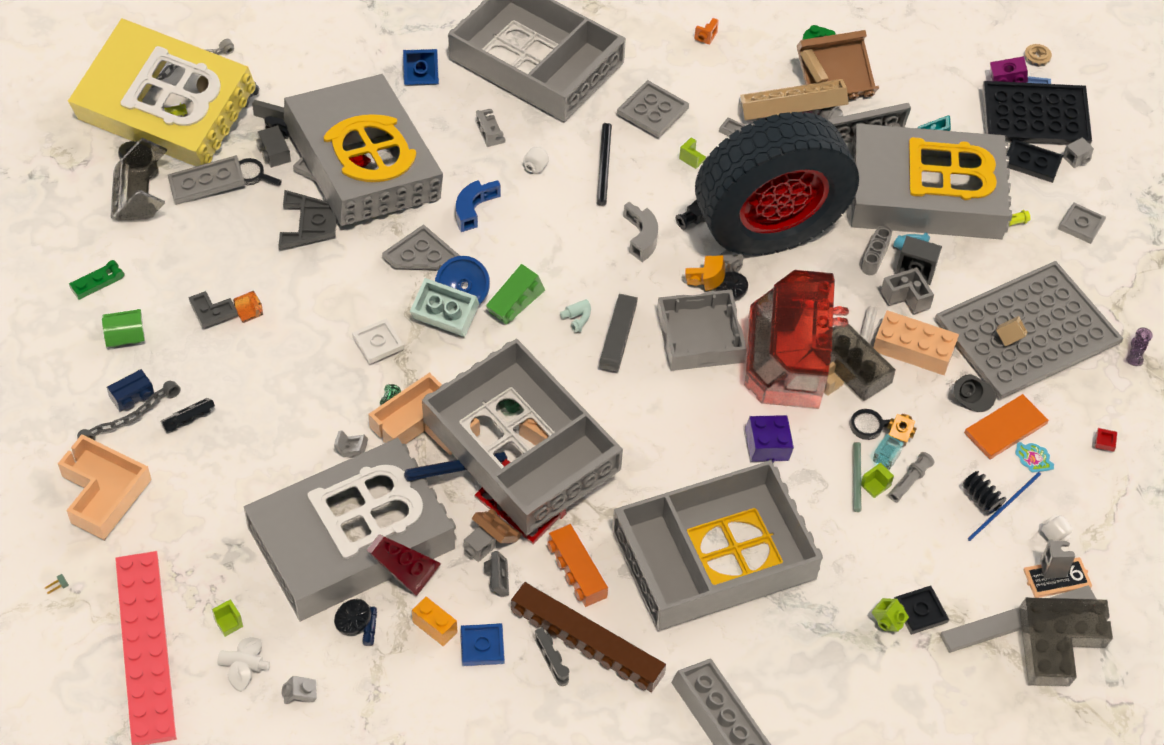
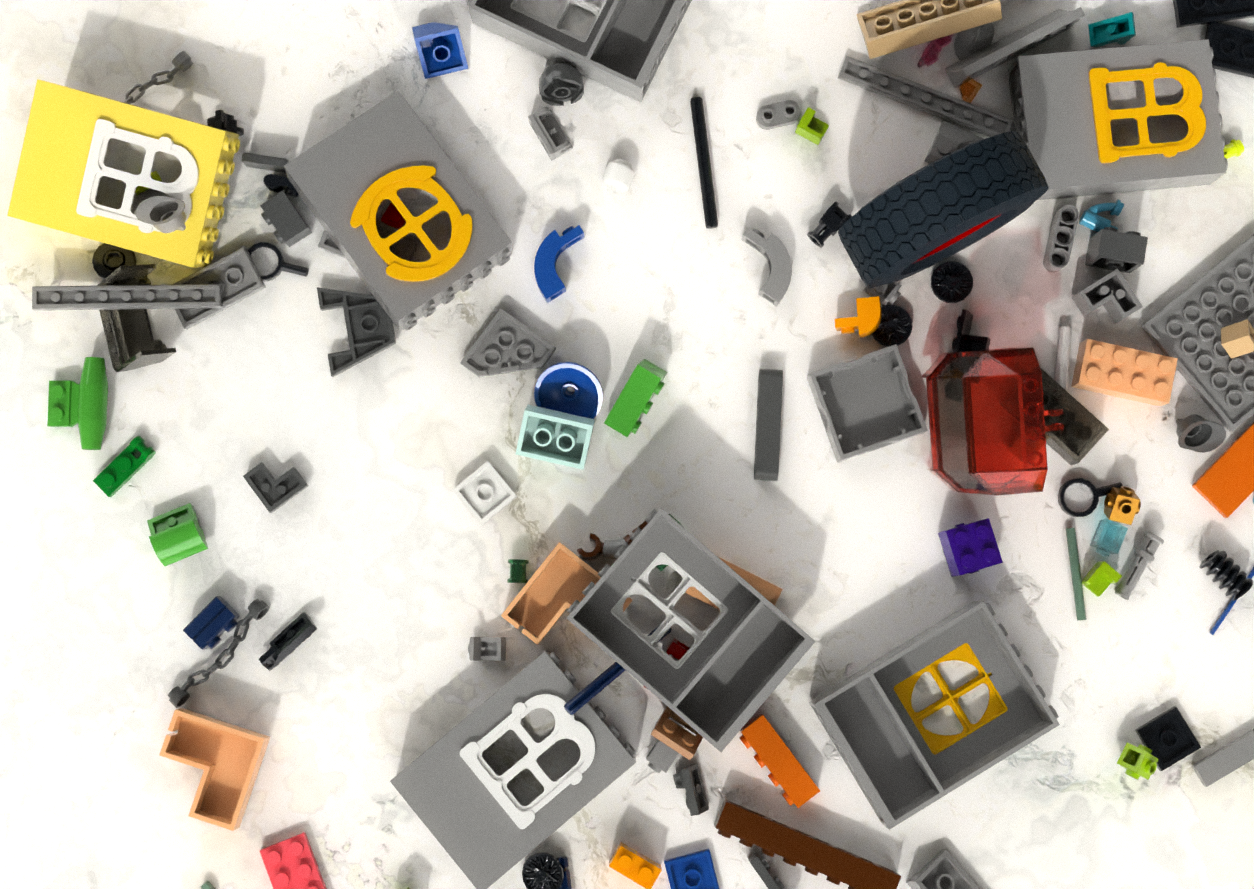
camera: 10 degrees left, 30 degrees up
(78, 234) = (82, 403): none -> bright green plate
(138, 168) = (126, 297): none -> light grey tile
(187, 109) = (163, 213): none -> light grey piece
(248, 306) = (318, 474): clear orange panel -> none
(404, 563) = (588, 818): dark red wing -> none
(505, 97) = (561, 84): none -> dark grey cylinder
(576, 309) = (715, 396): light aqua plant -> none
(653, 108) = (750, 60): light grey plate -> none
(667, 144) = (779, 115): none -> light grey plate
(783, 263) = (951, 282): none -> black wheel

